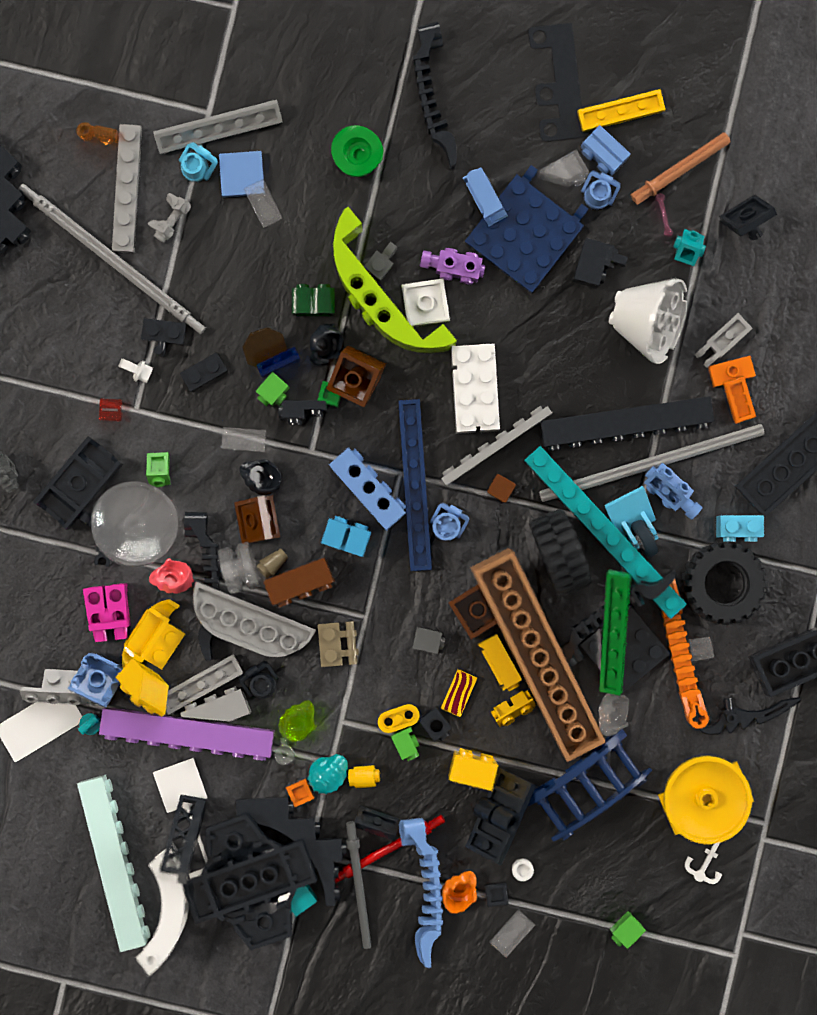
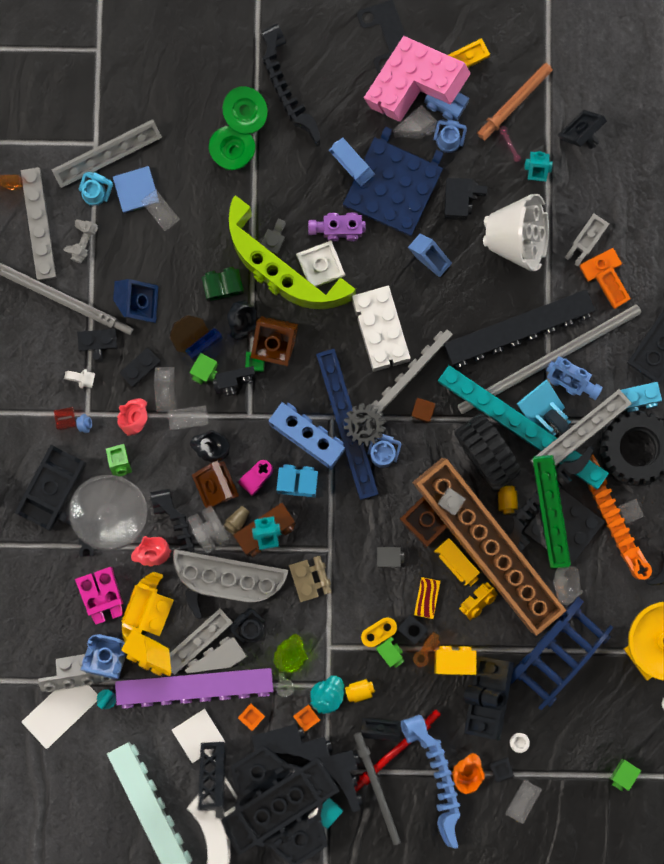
camera: 10 degrees left, 5 degrees down
(129, 420) = (84, 423): none -> medium blue plate
(184, 425) = (132, 416): none -> coral hair
(215, 297) = (136, 299): none -> dark blue slope
(225, 402) = (165, 389): none -> clear slope
(241, 778) = (251, 717): none -> orange plate
(299, 583) = (266, 532): none -> teal brick
(300, 523) = (253, 480): none -> dark pink piece
(380, 112) = (245, 110): none -> green hat
(425, 486) = (358, 420): none -> dark grey gear
(451, 743) = (431, 643): none -> clear orange plate
(507, 600) = (451, 501): none -> light grey plate
(547, 318) = (430, 254): none -> medium blue slope
(570, 607) = (507, 500): none -> yellow brick
(573, 109) = (412, 70): none -> bright pink piece
(673, 549) = (586, 427): none -> light grey plate

